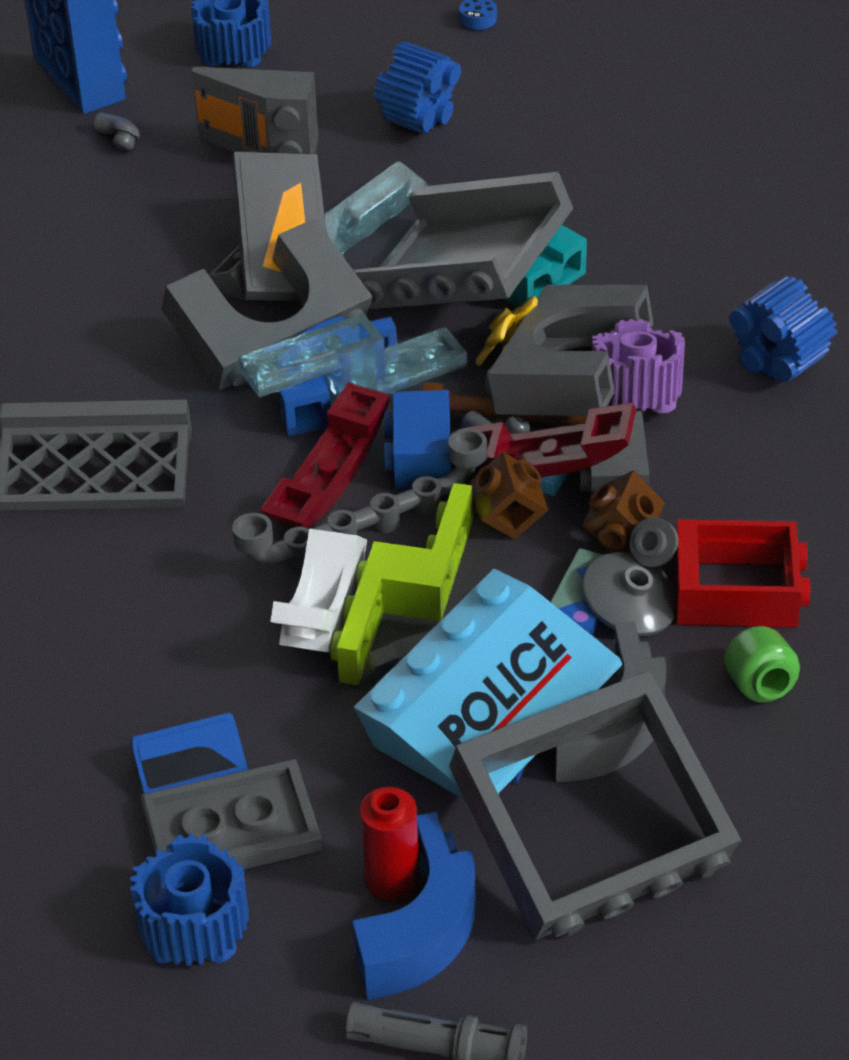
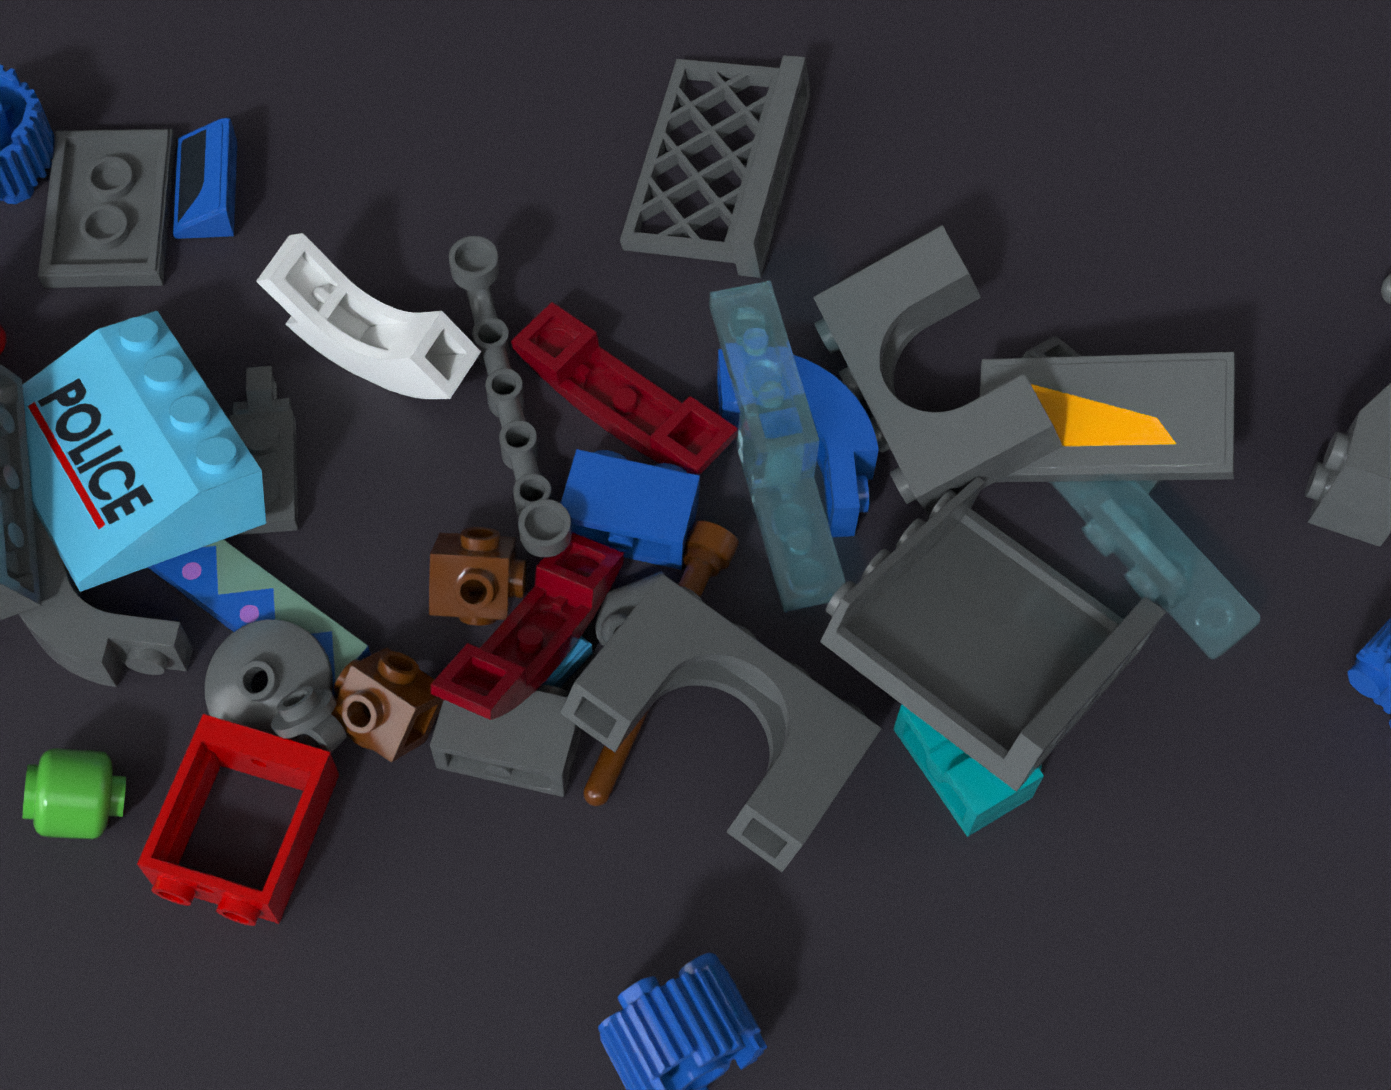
camera: 100 degrees right, 20 degrees up
(403, 583) = (375, 431): lime bracket -> none
(504, 327) = (814, 662): yellow plate -> none
(644, 365) = (641, 830): medium lavender brick -> none

